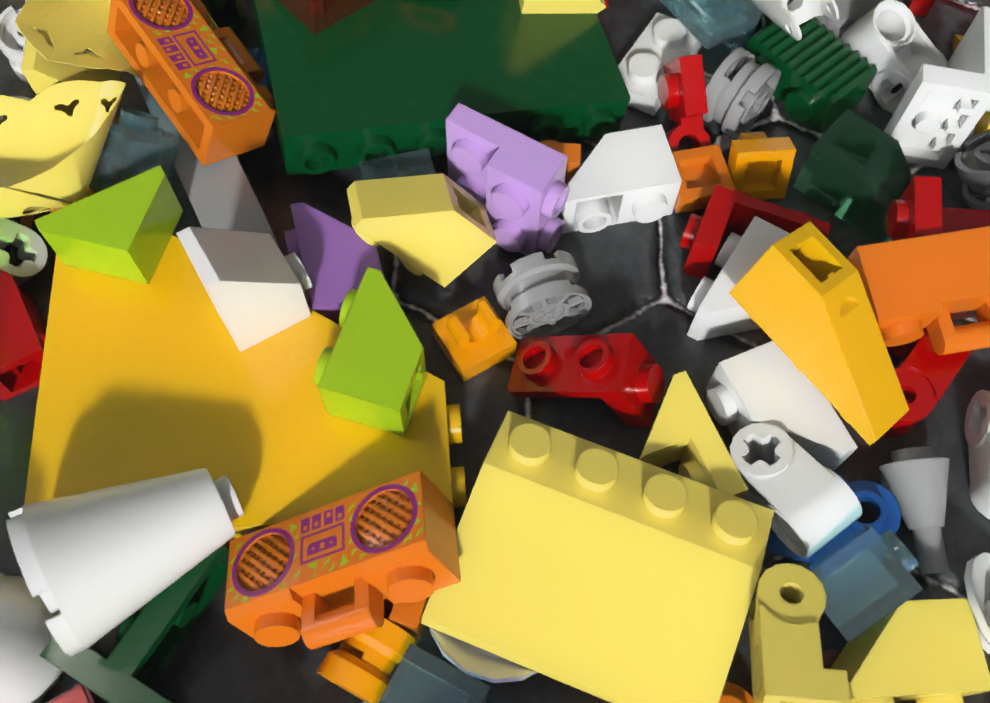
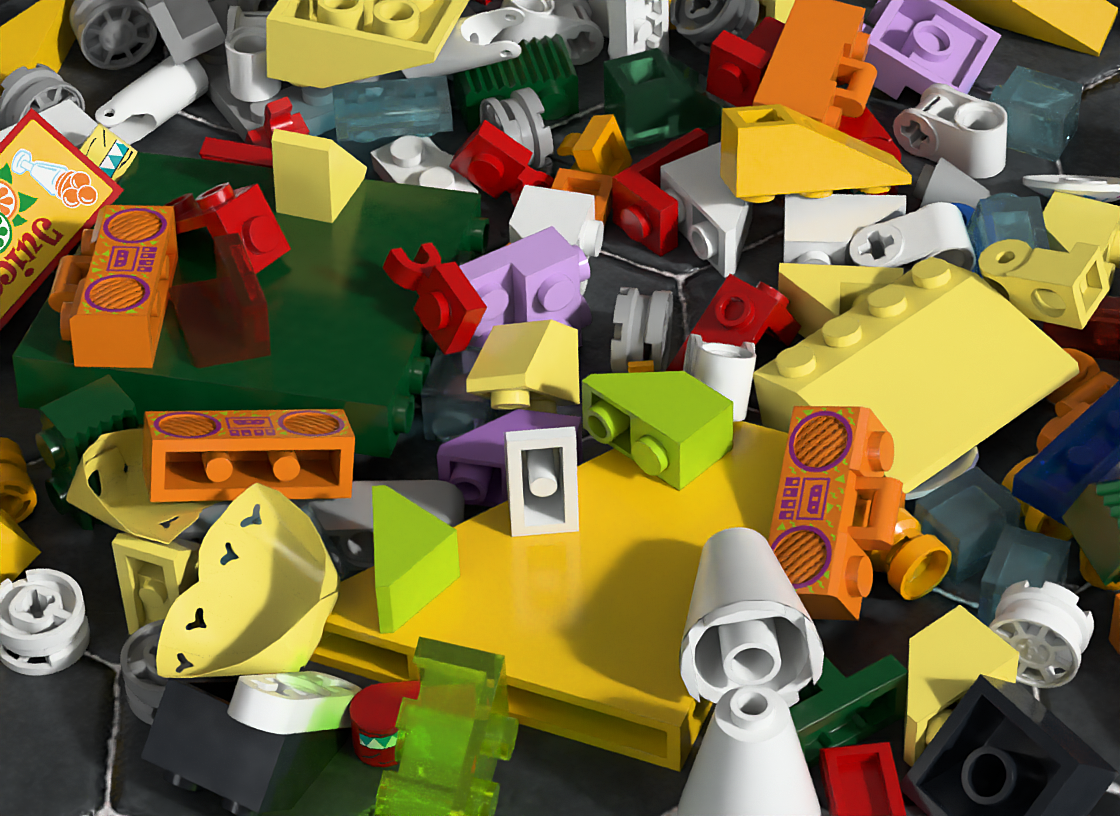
camera: 60 degrees left, 20 degrees down
(424, 121) = (446, 299): none -> red plate
(486, 384) = (724, 369): none -> white piece

